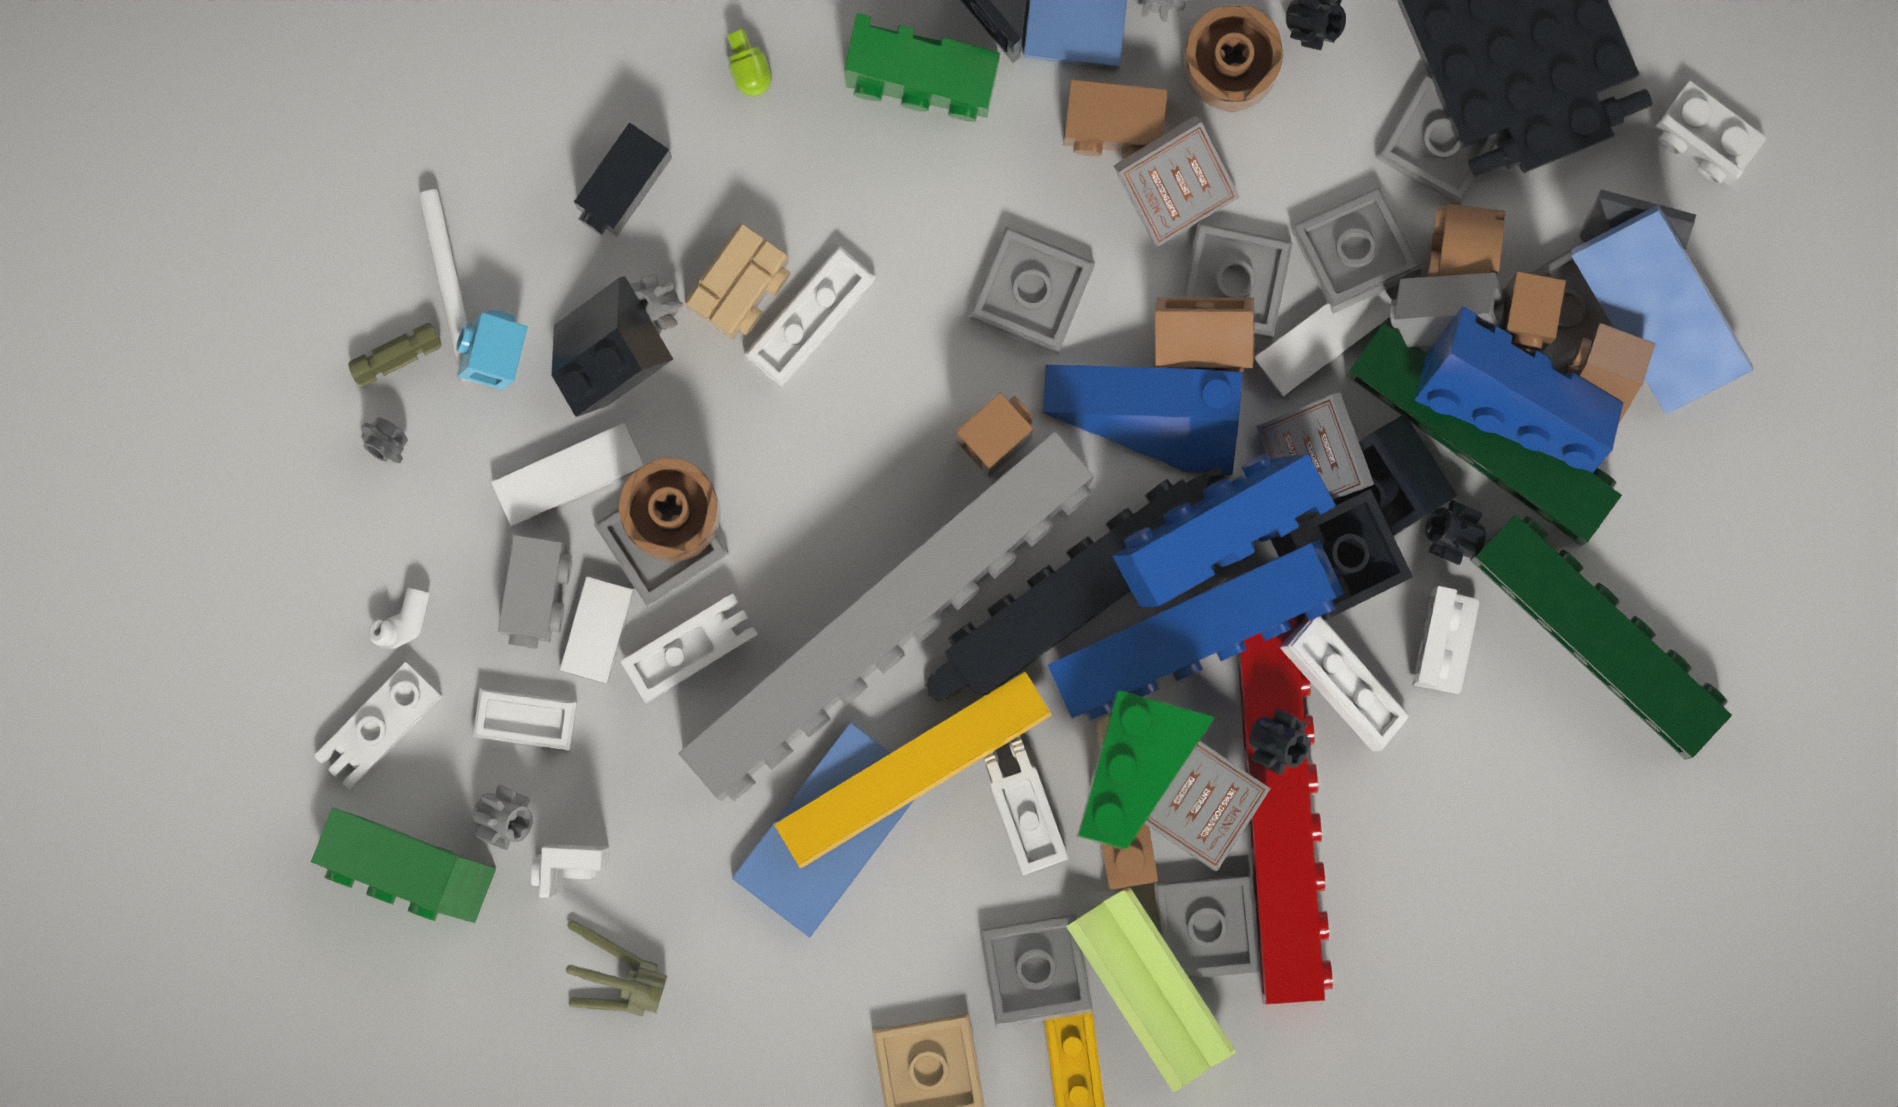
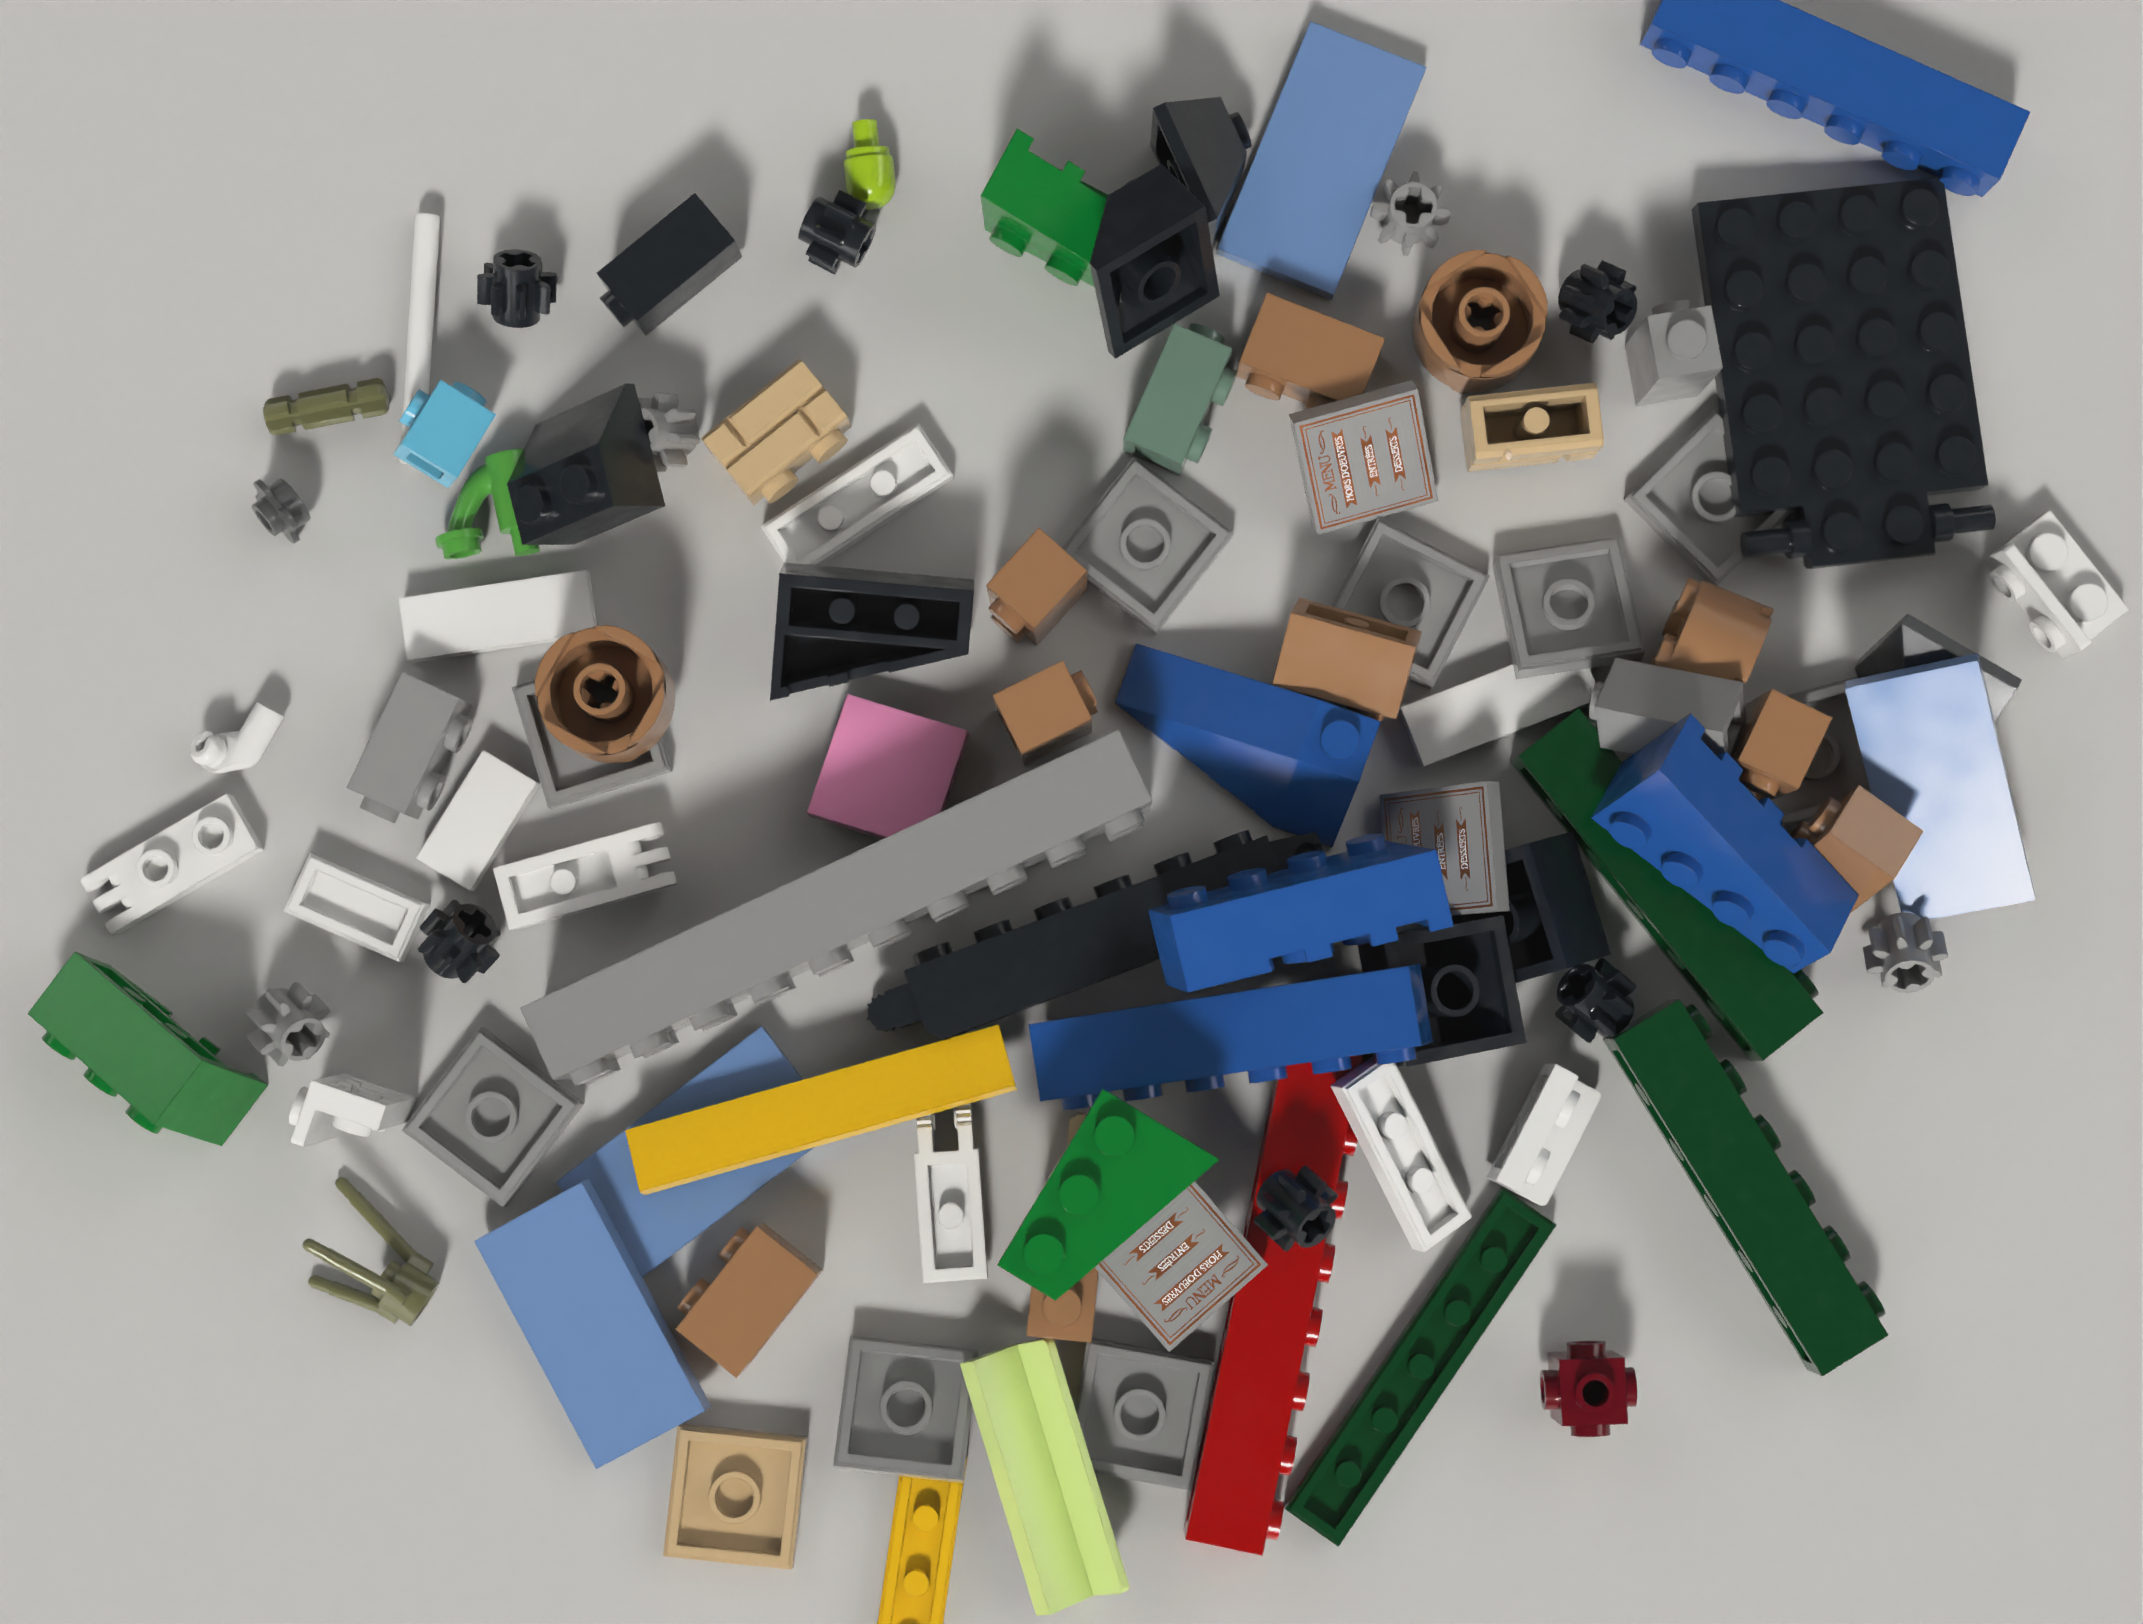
camera: 20 degrees right, 0 degrees up
(513, 228) = (516, 288): none -> black gear
(534, 373) = (491, 478): none -> bright green plant
(611, 721) = (459, 941): none -> black gear
(670, 844) = (492, 1117): none -> light grey tile
(739, 120) = (837, 232): none -> black gear
(788, 973) = (592, 1323): none -> medium blue tile
(843, 404) = (863, 623): none -> black wedge
(888, 508) = (886, 769): none -> bright pink tile
(897, 922) = (747, 1298): none -> medium nougat brick
(962, 345) = (1035, 589): none -> medium nougat brick
(981, 80) = (1151, 259): none -> black slope
(1026, 174) = (1178, 398): none -> sand green brick
(1292, 125) = (1531, 427): none -> tan brick
(1381, 42) = (1673, 353): none -> light grey brick
(1401, 835) = (1419, 1366): none -> dark green tile
(1508, 817) = (1569, 1373): none -> dark red brick
(1671, 434) = (1905, 952): none -> light grey gear

